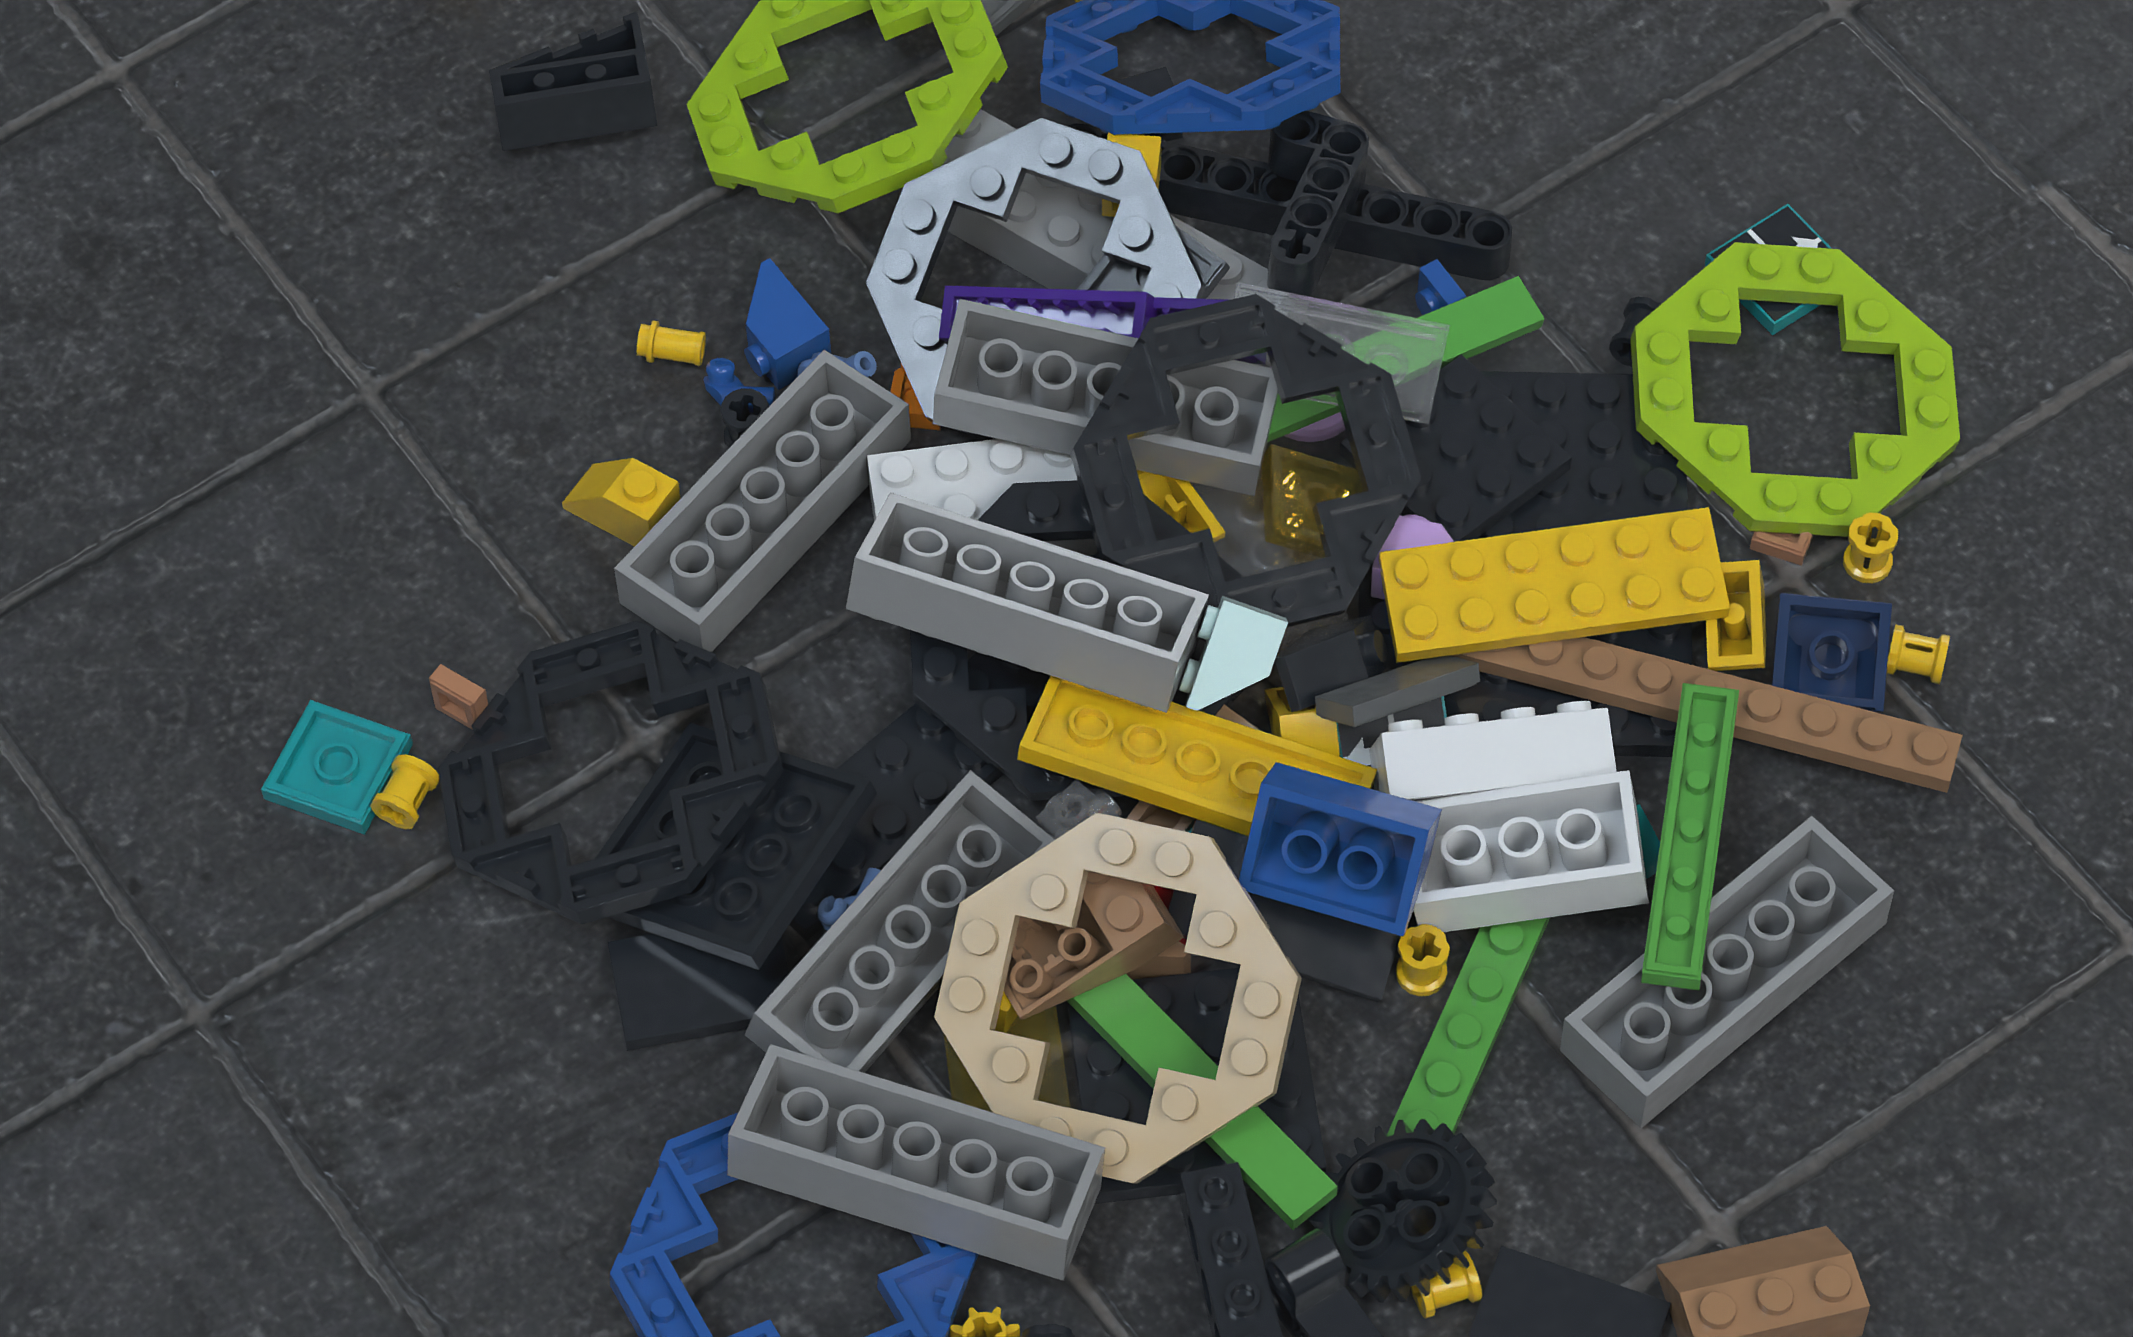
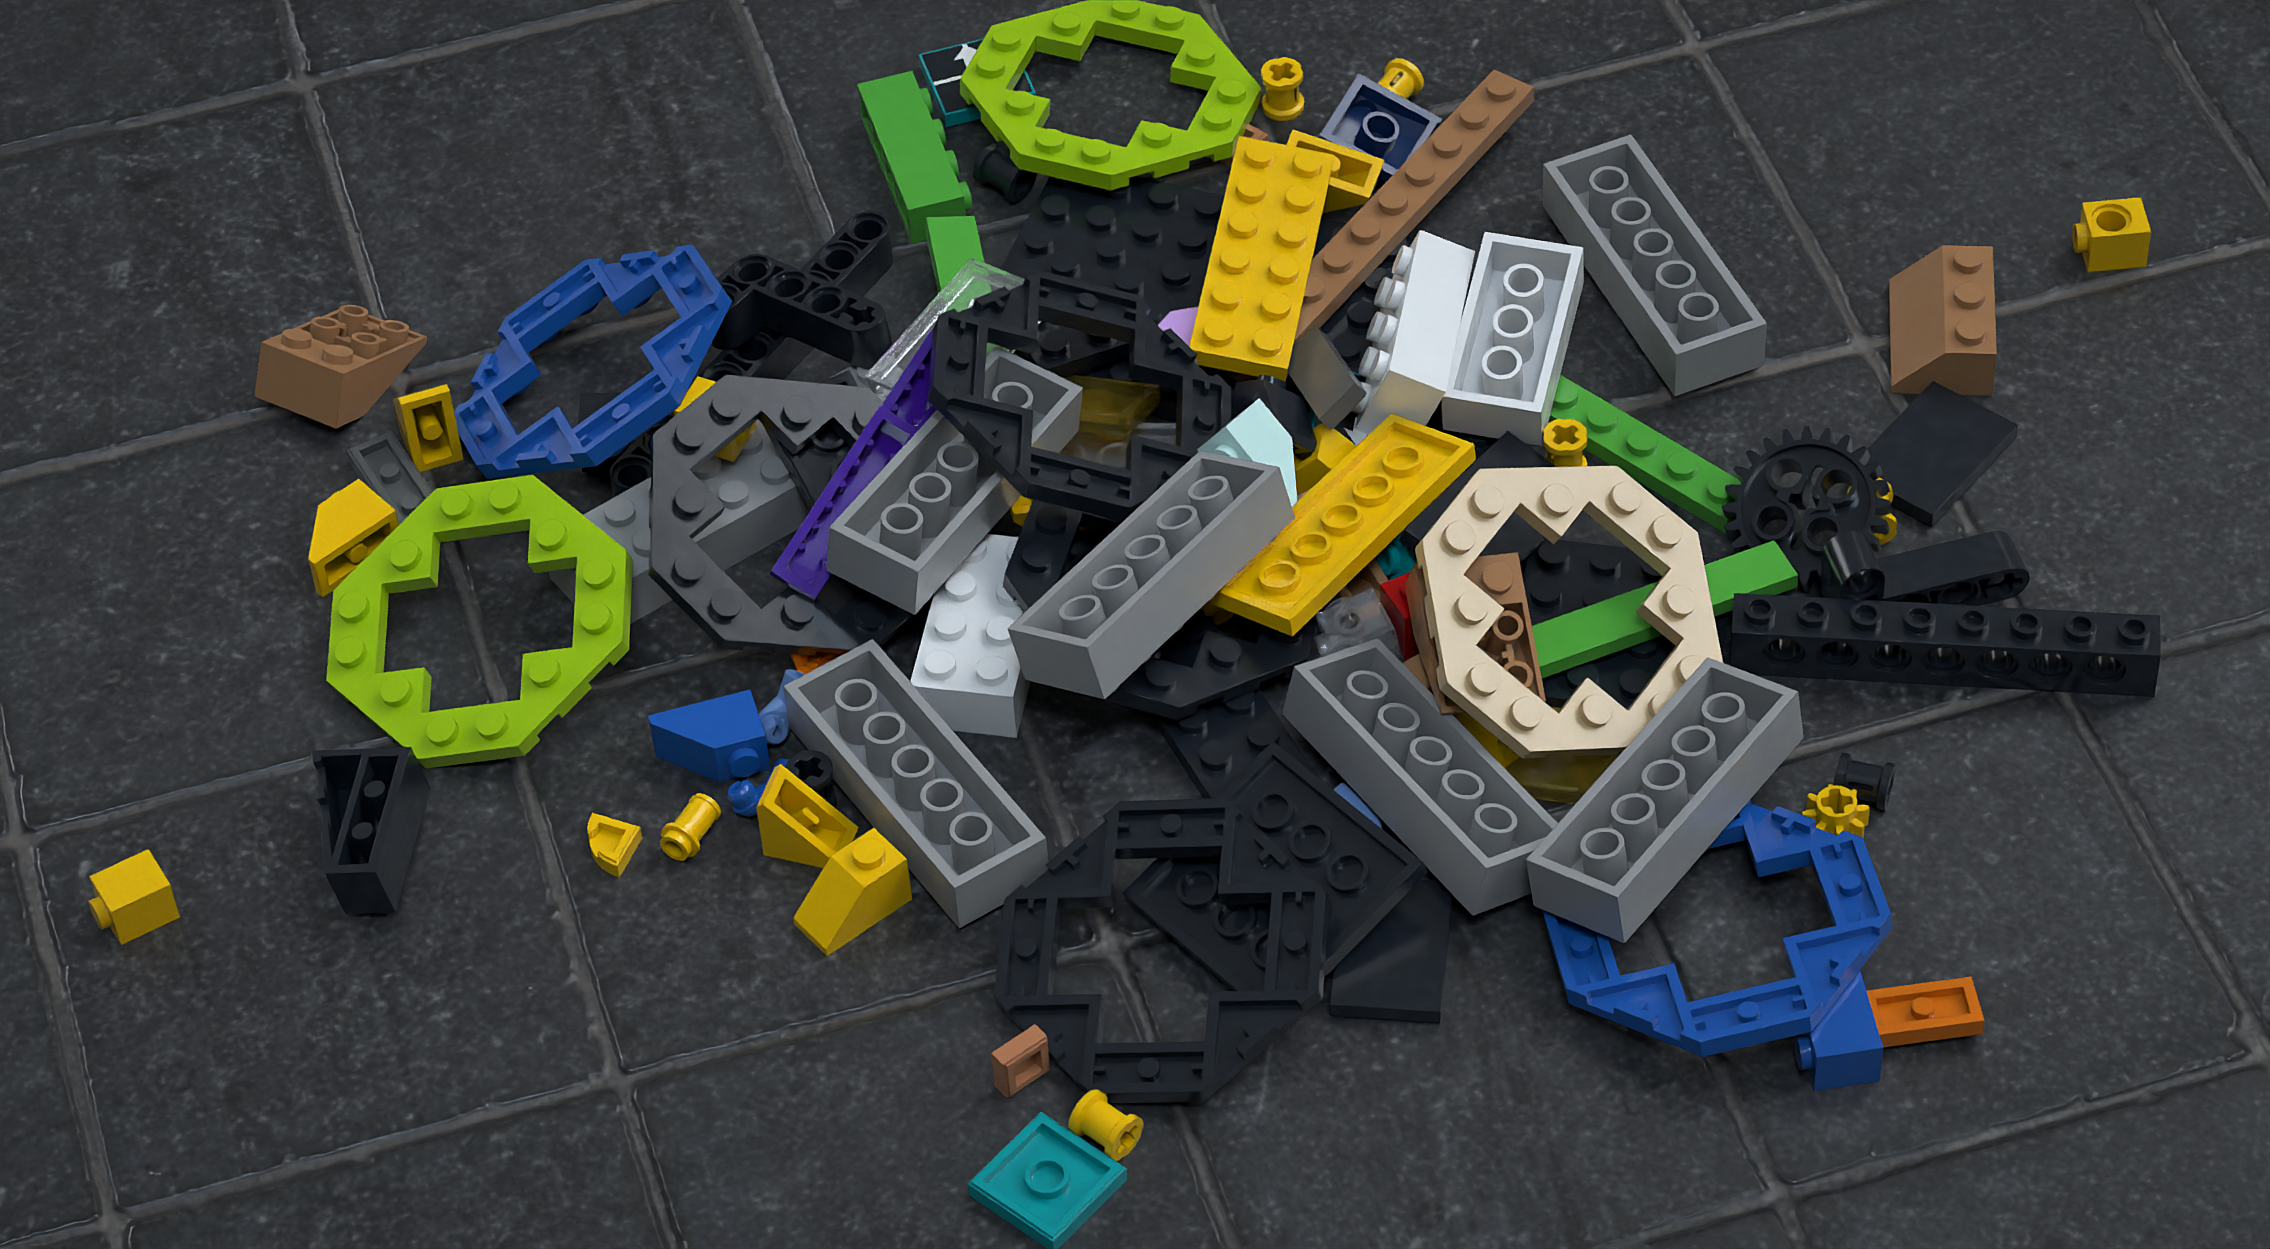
camera: 70 degrees left, 10 degrees down
(640, 292) = (612, 842): none -> yellow tile
(693, 425) = (799, 822): none -> yellow slope
(1338, 848) = (1484, 418): blue slope -> none
(1436, 288) = (908, 284): blue plate -> none
(1628, 244) = (912, 152): none -> bright green brick
(1690, 837) = (1472, 213): bright green tile -> none

